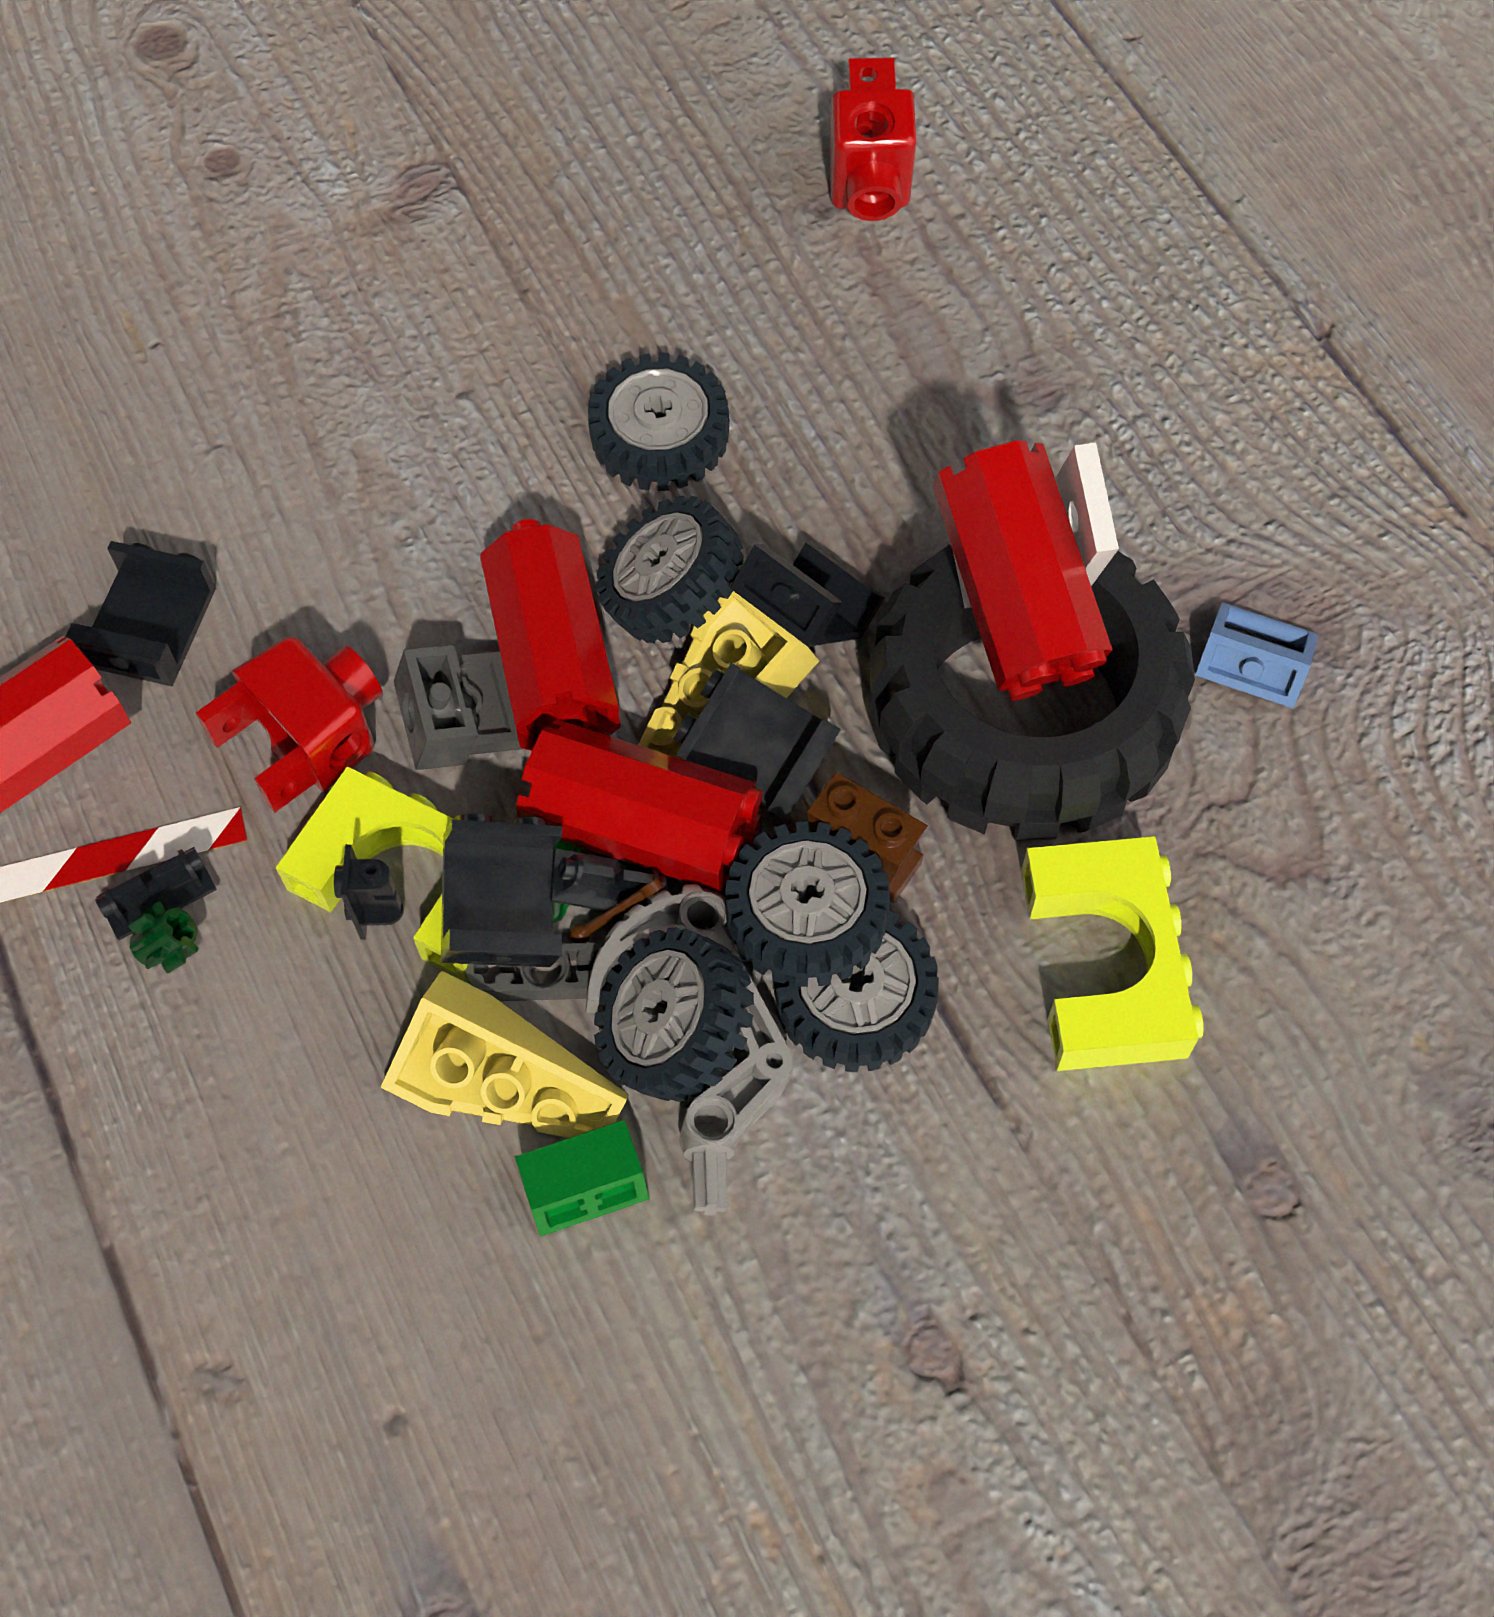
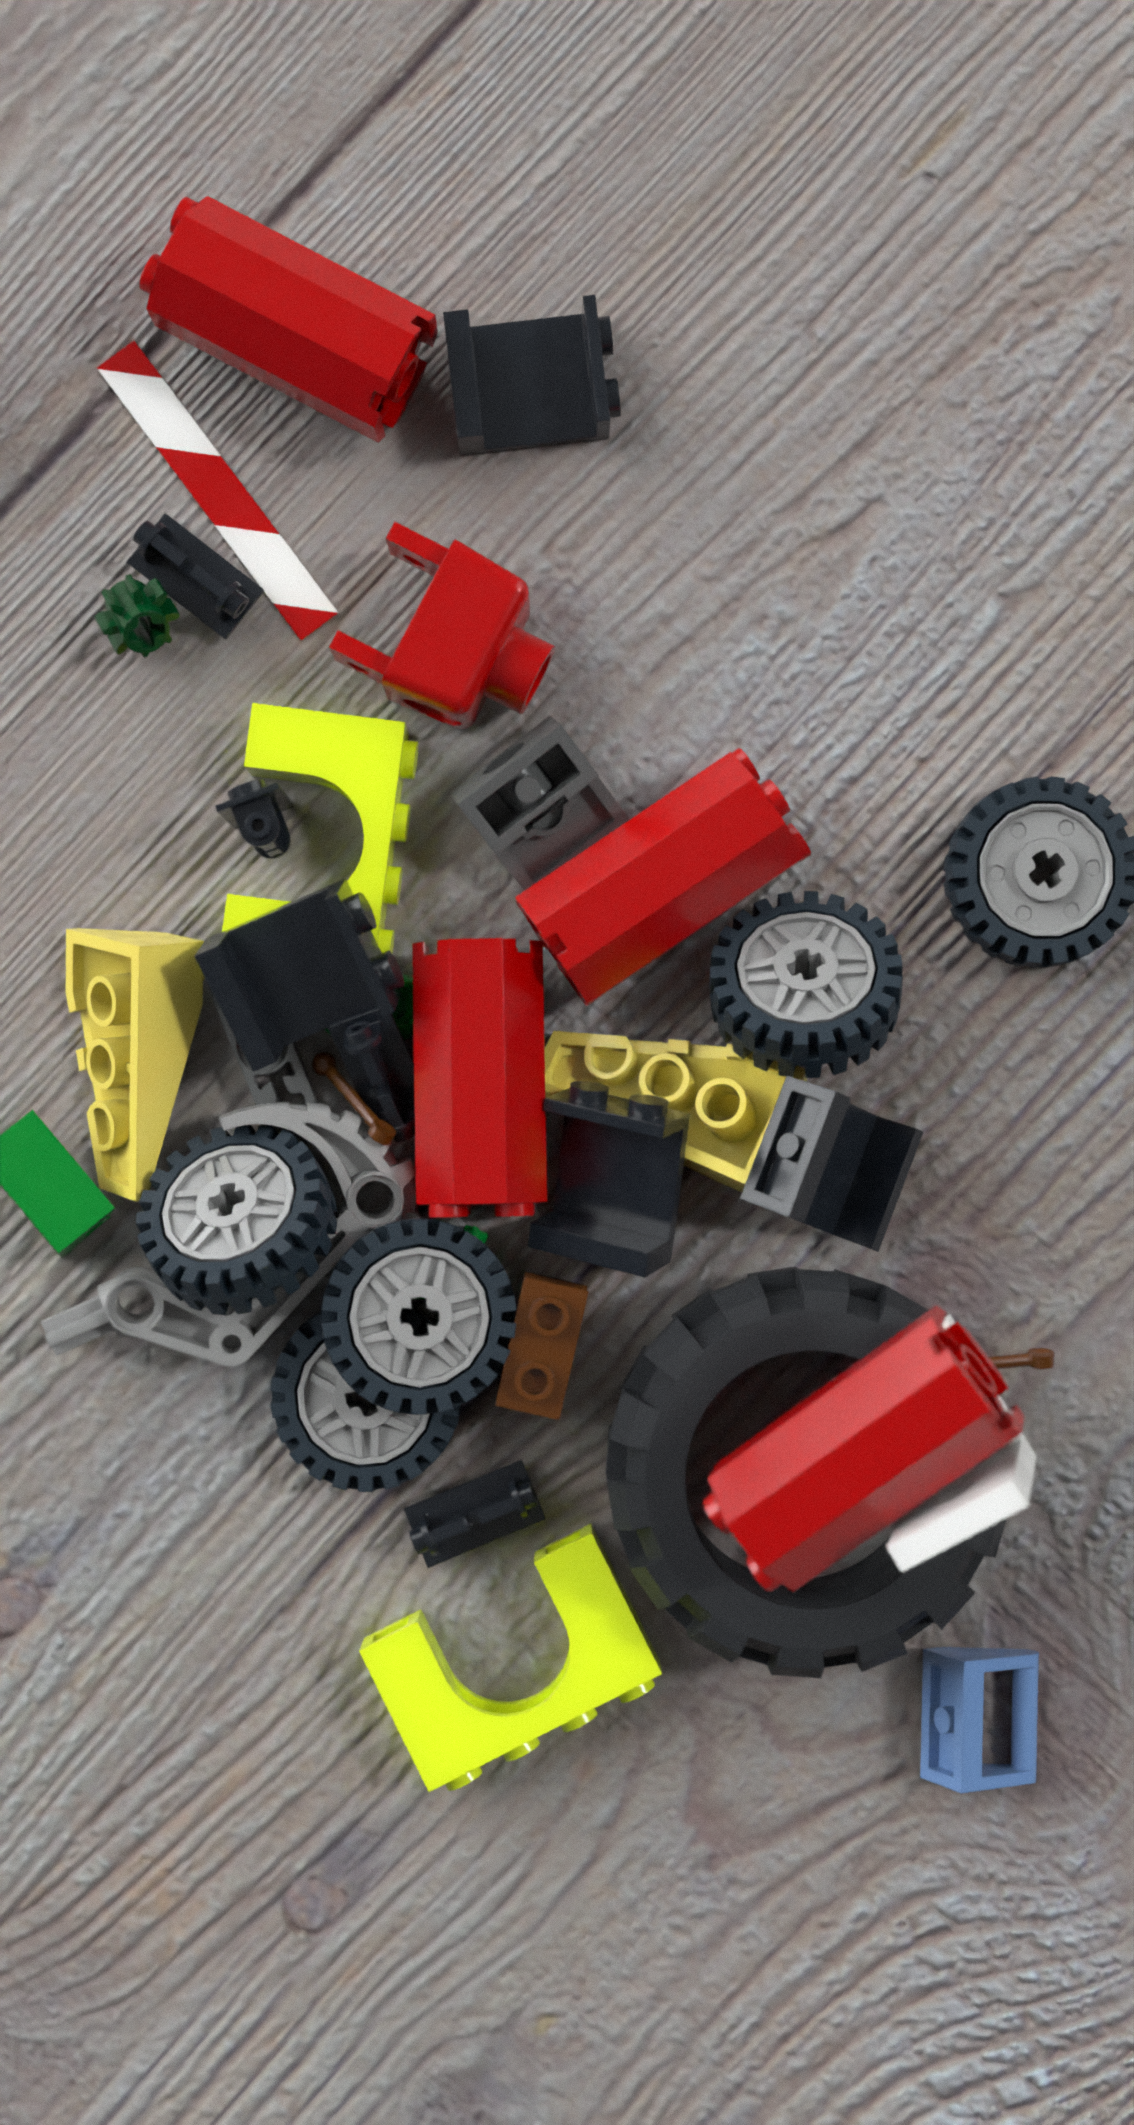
camera: 65 degrees right, 25 degrees up
(982, 943) = (473, 1514): none -> black hinge

